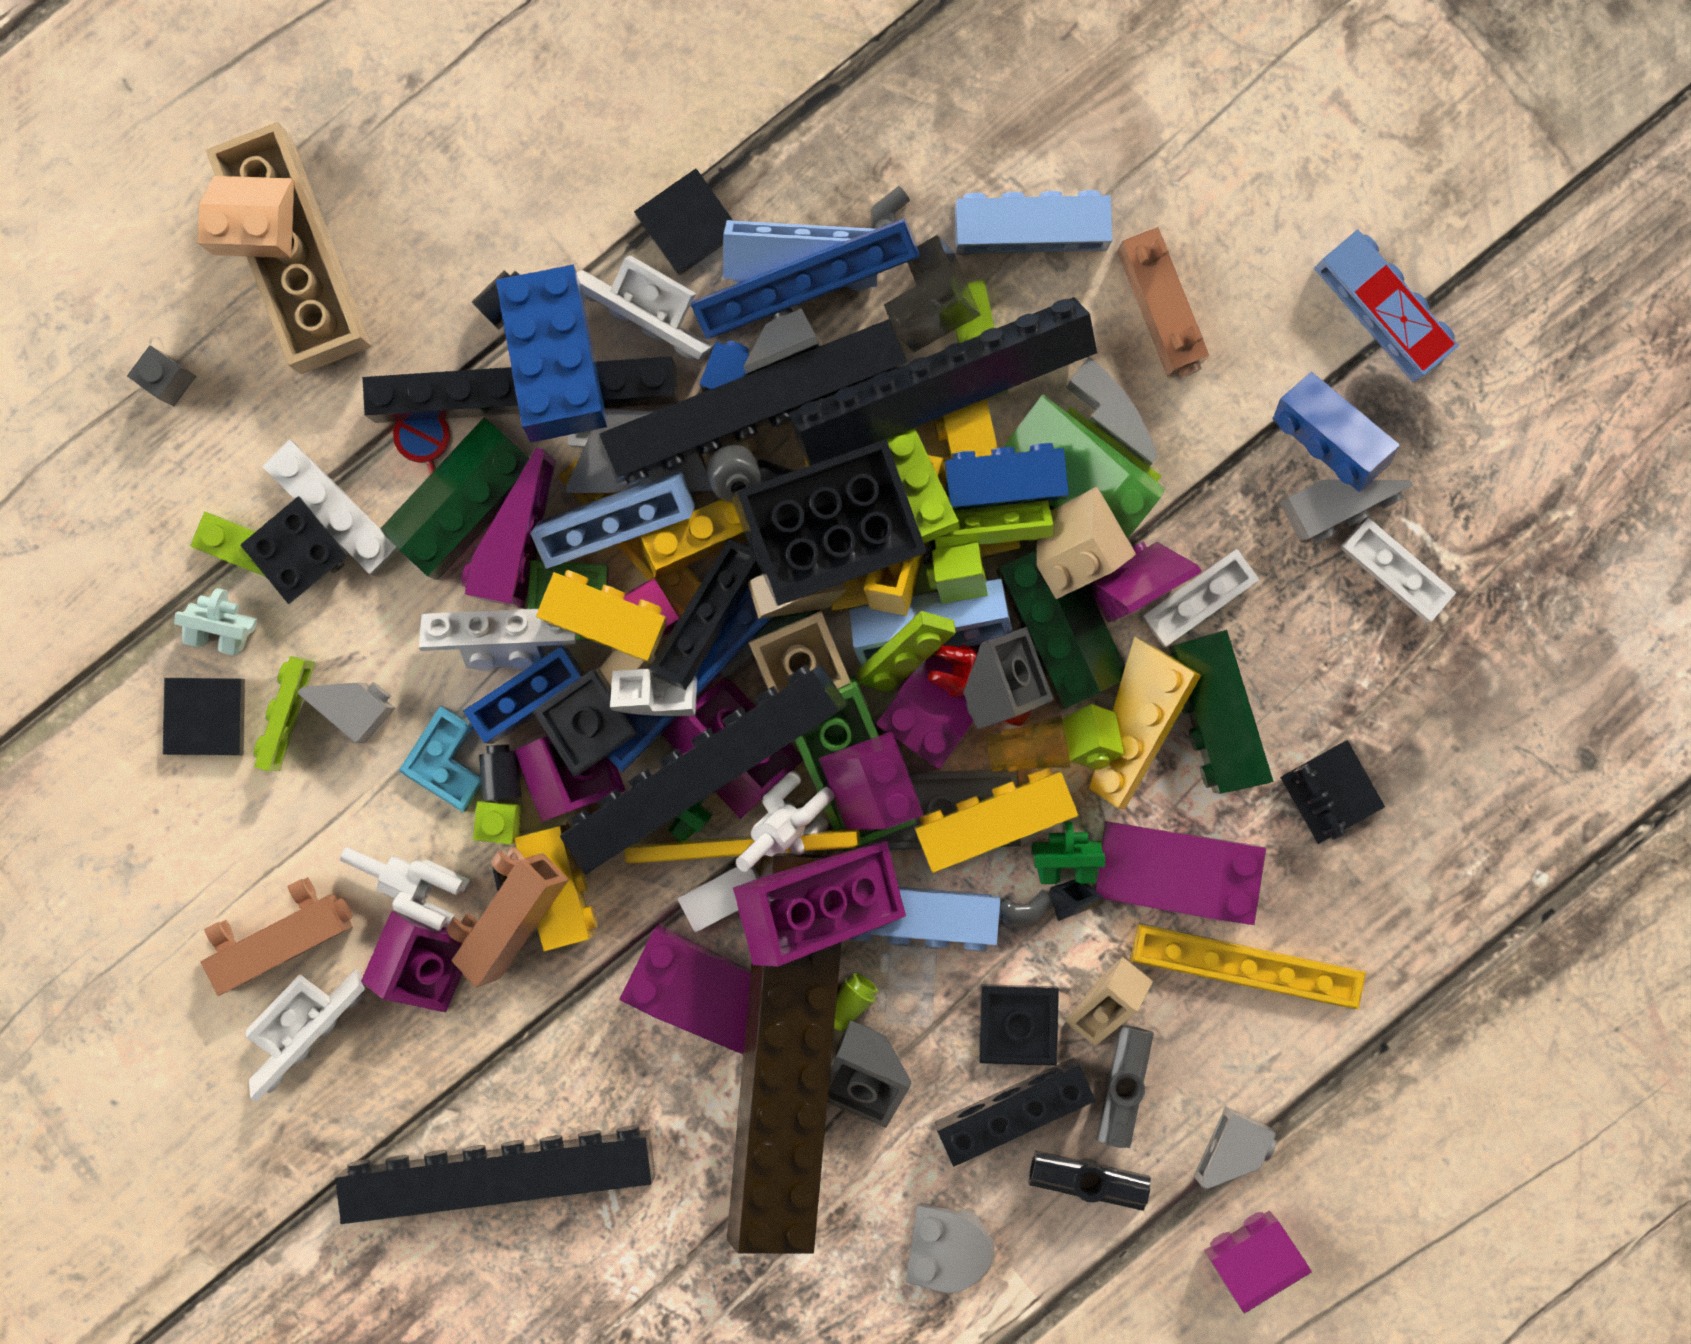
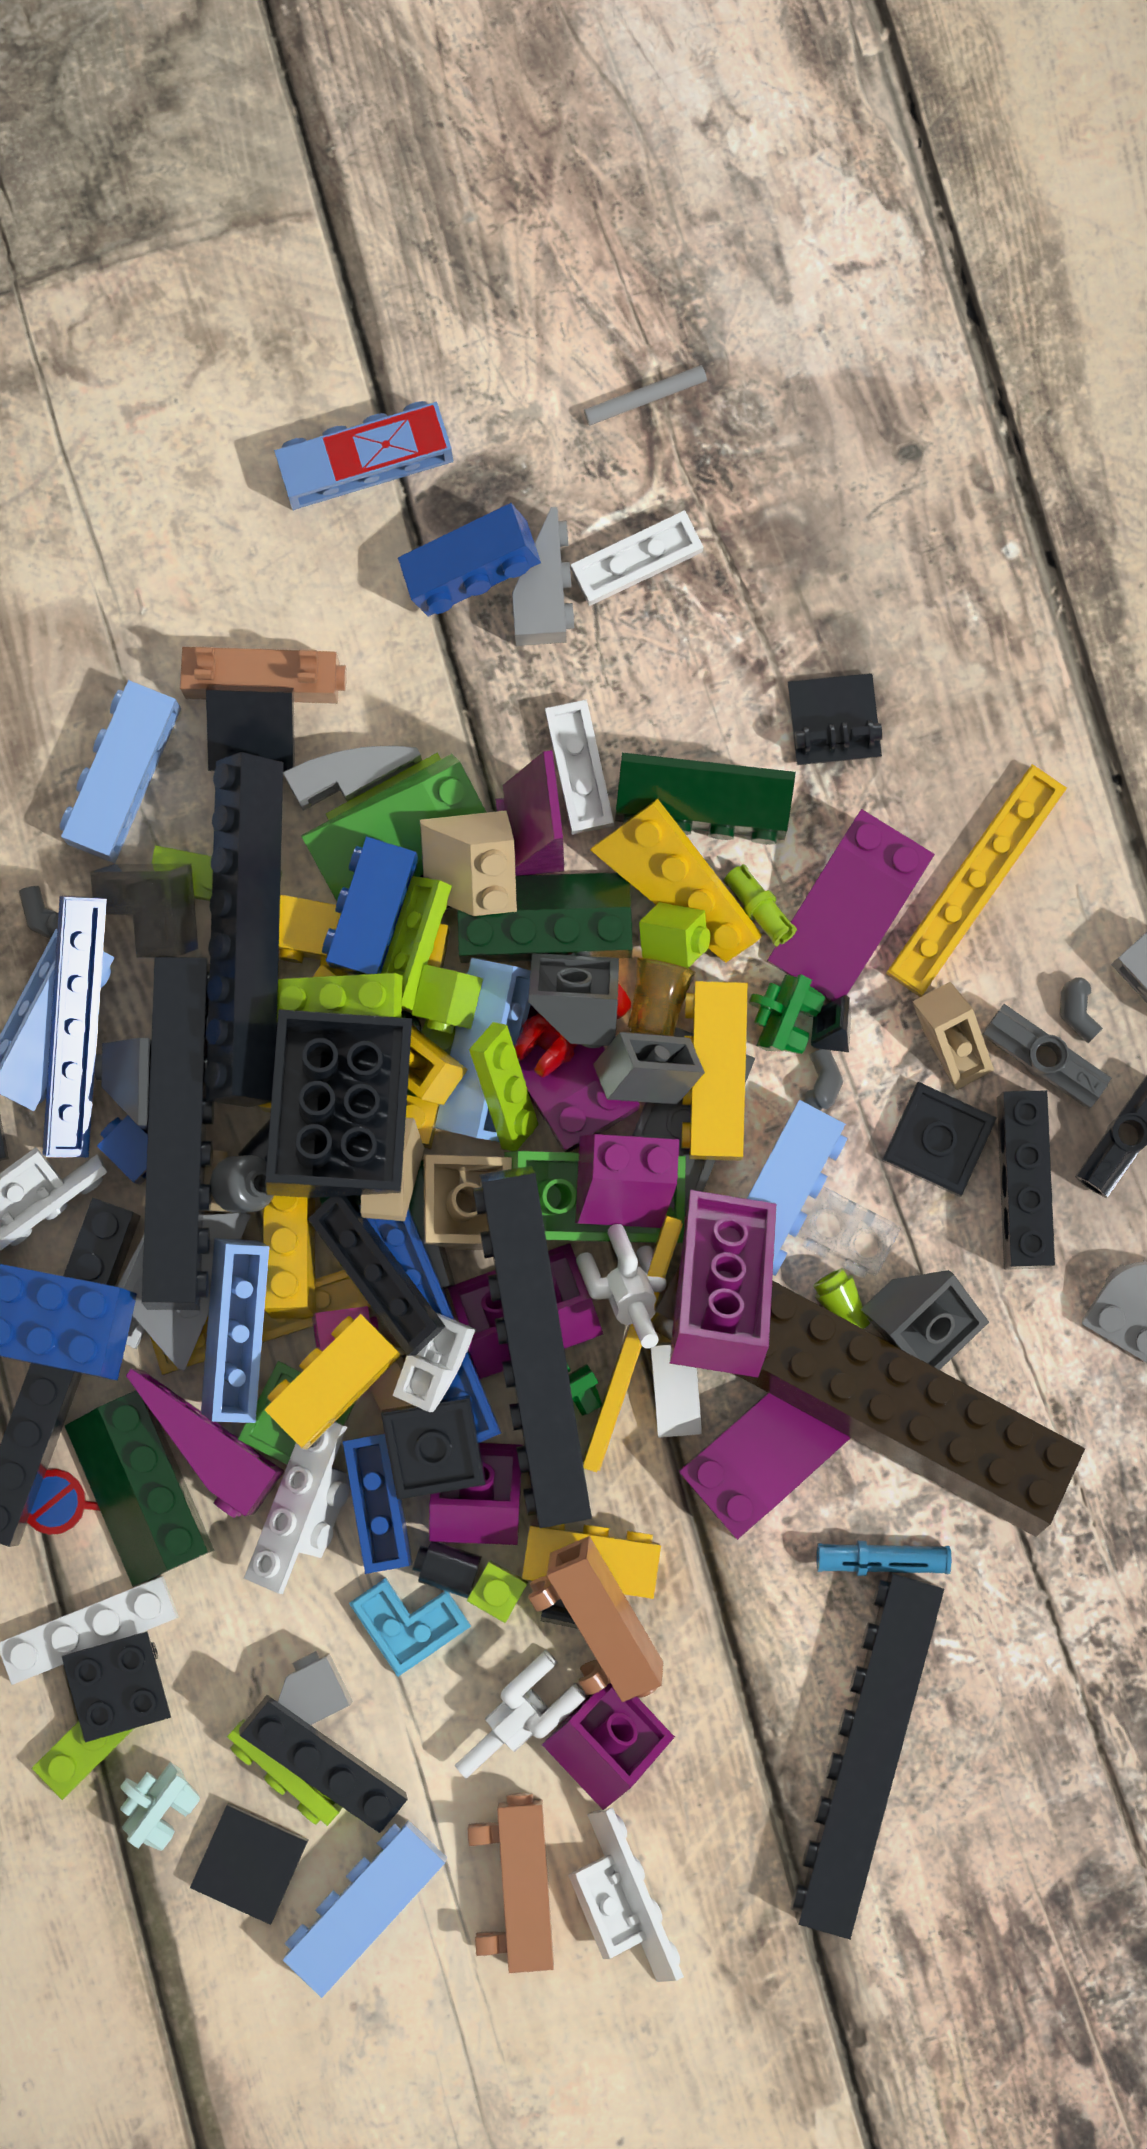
camera: 70 degrees left, 5 degrees down
(205, 823) = (364, 1908): none -> light blue brick
(301, 741) = (323, 1764): none -> black plate
(654, 1115) = (883, 1558): none -> dark azure pin
(971, 764) = (648, 1068): none -> dark grey brick
(1118, 312) = (250, 722): none -> black tile
(1149, 796) = (760, 905): none -> lime pin
(1175, 1092) = (1074, 1008): none -> dark grey arm
(1540, 517) = (645, 395): none -> light grey bar

